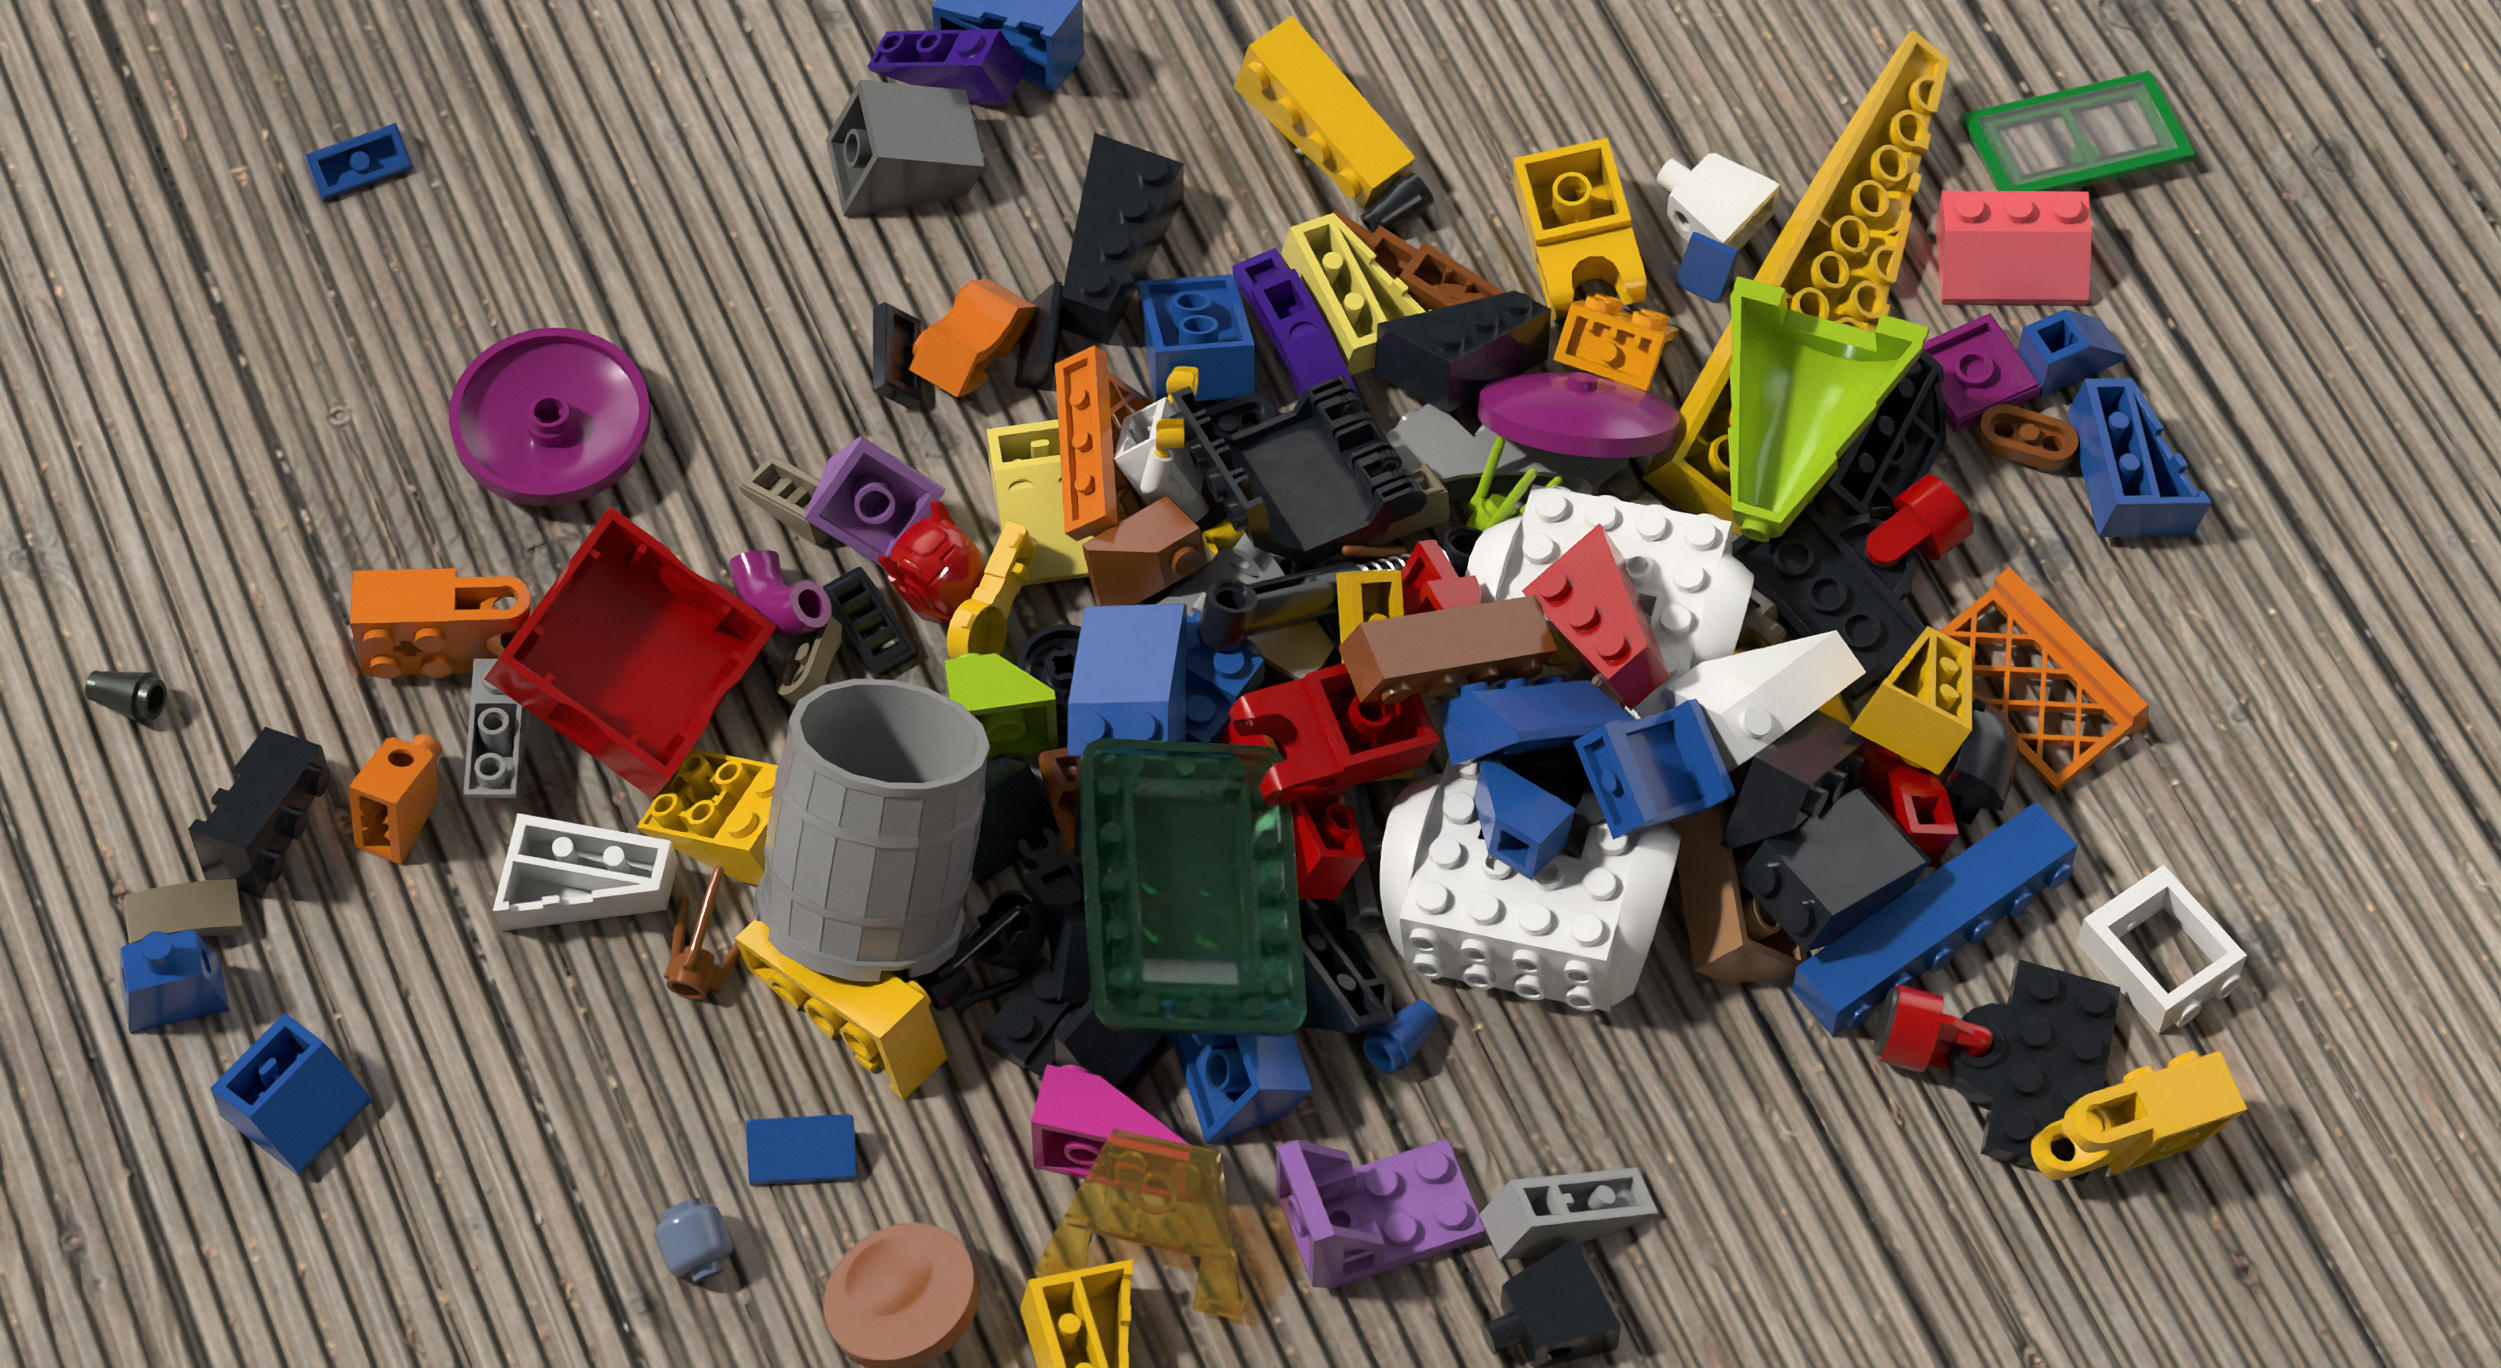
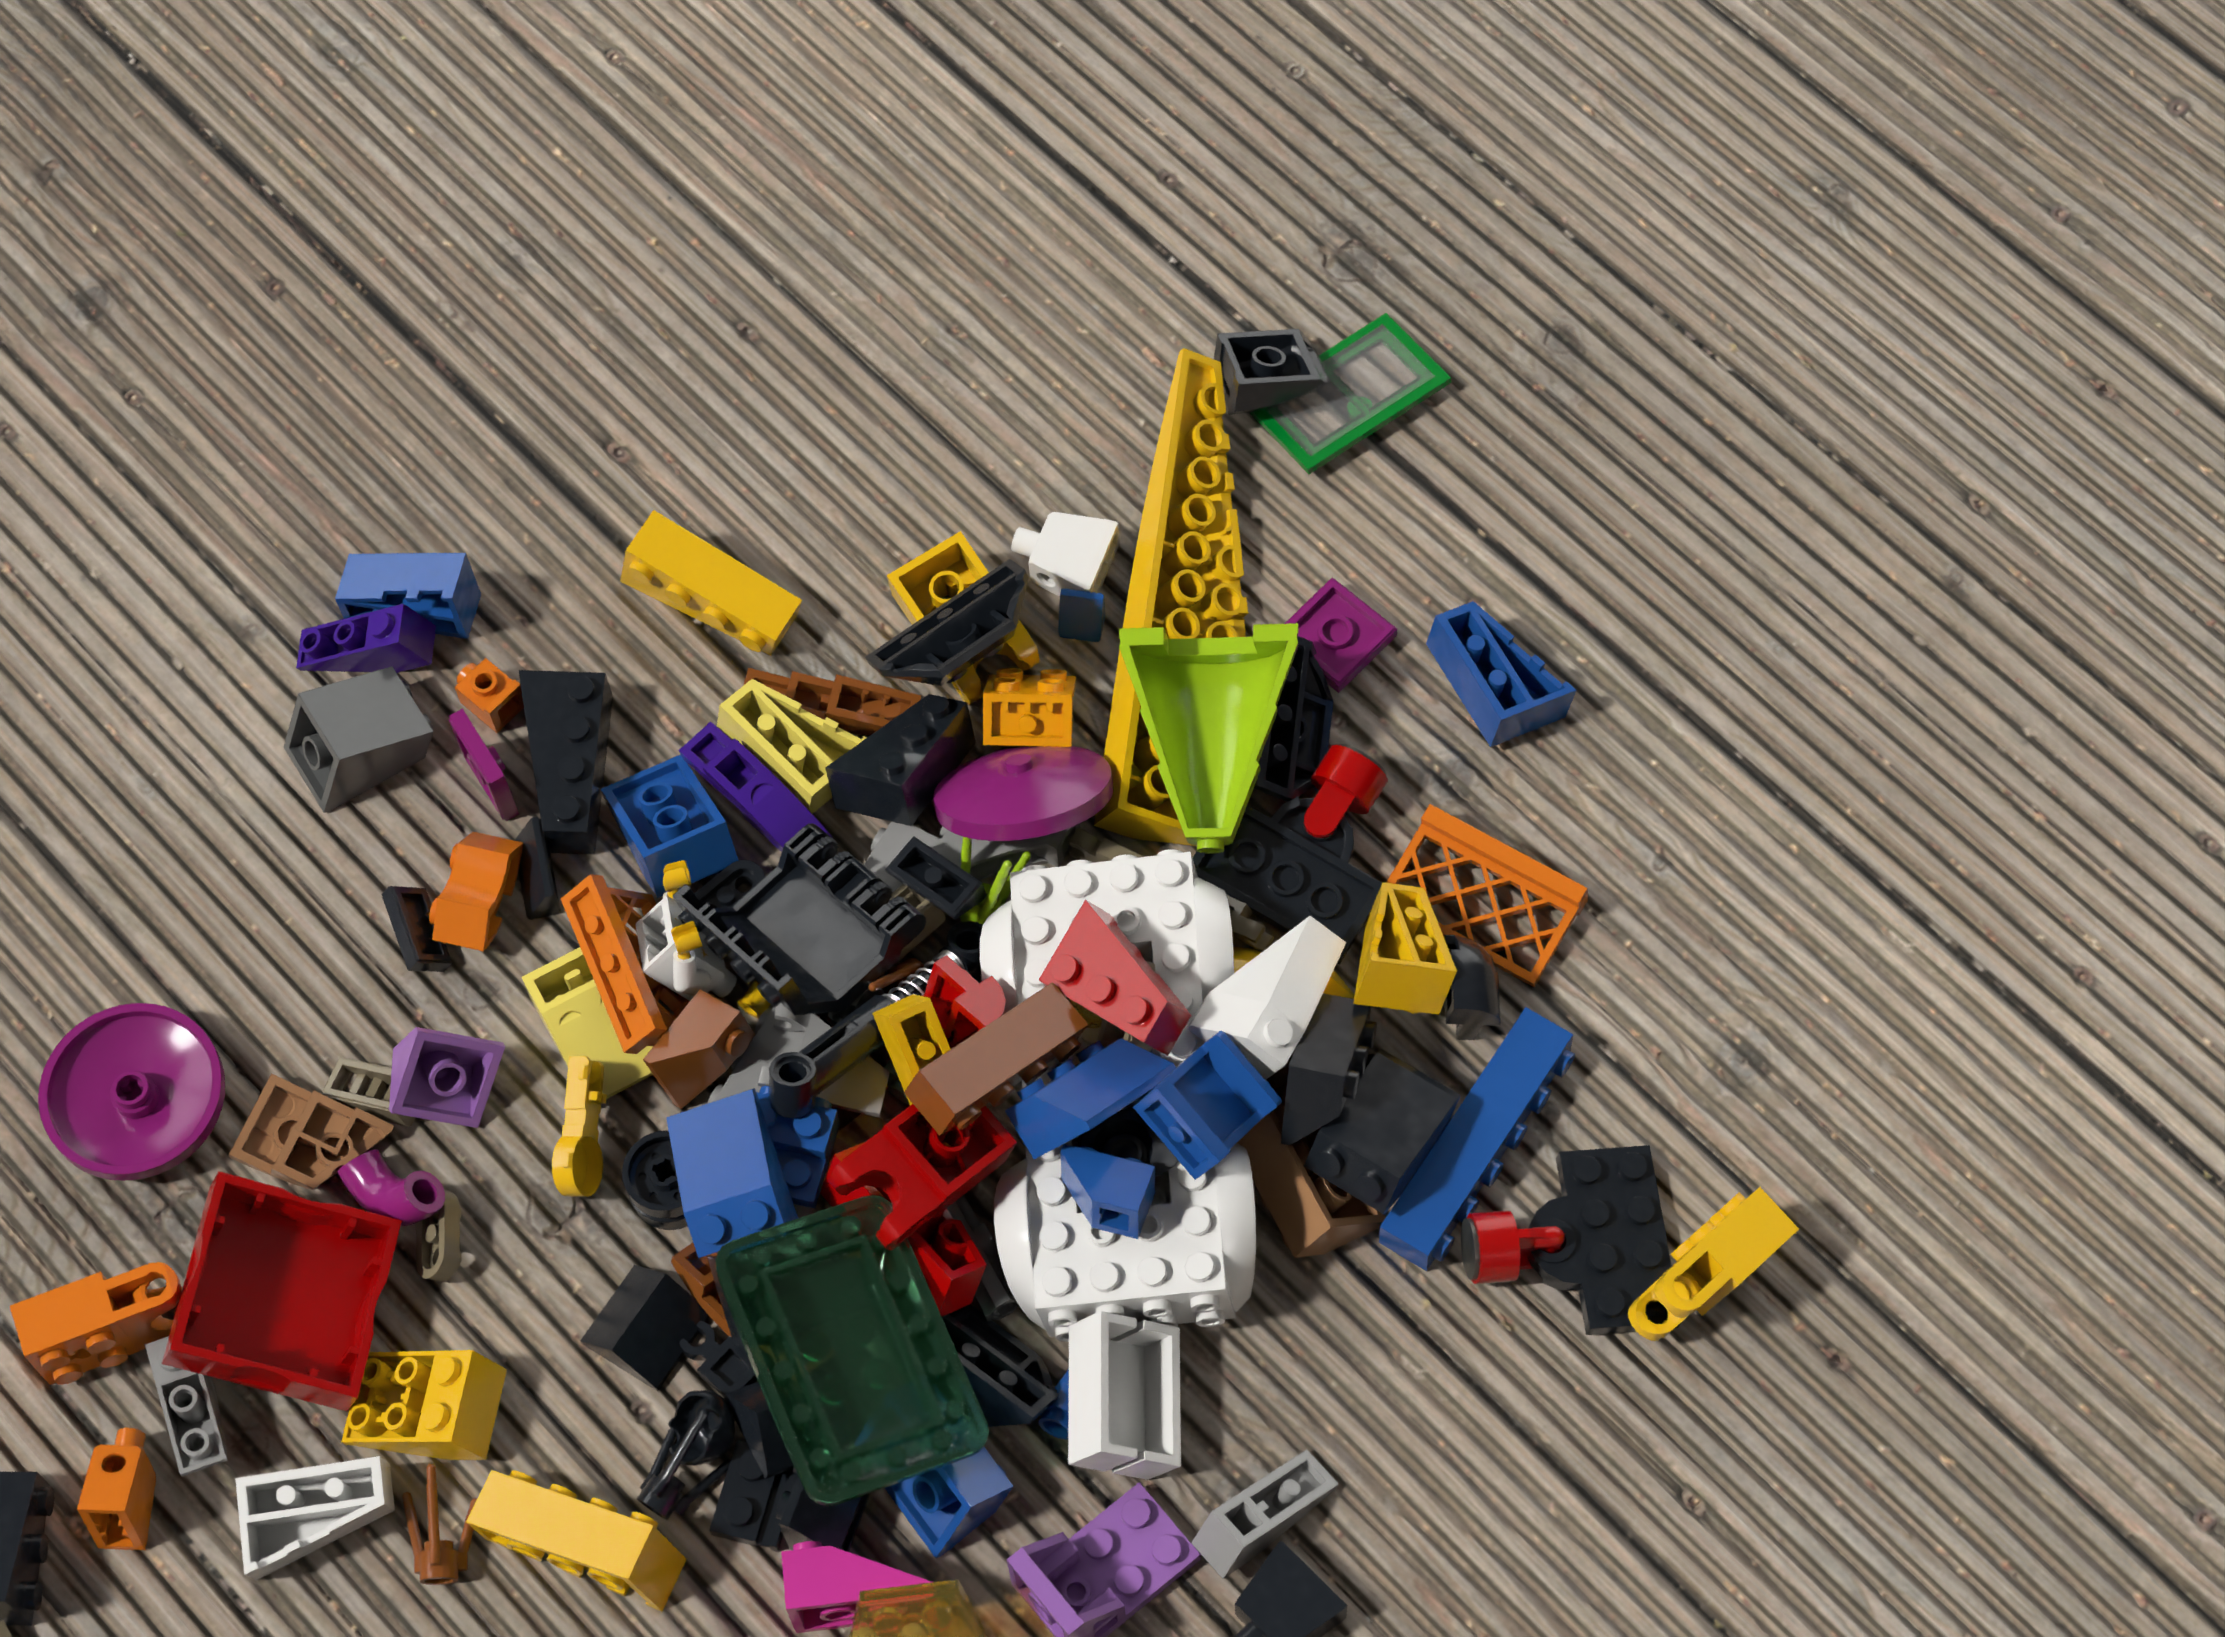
camera: 15 degrees left, 5 degrees up
(708, 515) = (304, 1134): none -> medium nougat slope
(854, 594) = (449, 1160): black slope -> none
(873, 829) = (556, 1394): light grey piece -> none
(934, 566) = (520, 1115): red helmet -> none
(1007, 701) = (619, 1230): lime slope -> none
(1025, 214) = (485, 765): none -> magenta plate
(1056, 151) = (489, 694): none -> orange brick
(1399, 204) = (800, 645): black cone -> none
(1454, 469) = (936, 878): none -> black slope
(1462, 1041) = (1124, 1396): none -> white piece
(1567, 233) = (958, 631): none -> black wedge
(1912, 799) = (1423, 1043): red slope -> none
(1997, 83) = (1267, 368): none -> black slope
(2014, 247) = (1331, 512): coral slope -> none
(2028, 437) = (1401, 674): dark orange plate -> none
(2067, 349) = (1408, 588): blue slope -> none
(2156, 891) = (1666, 1141): white window -> none

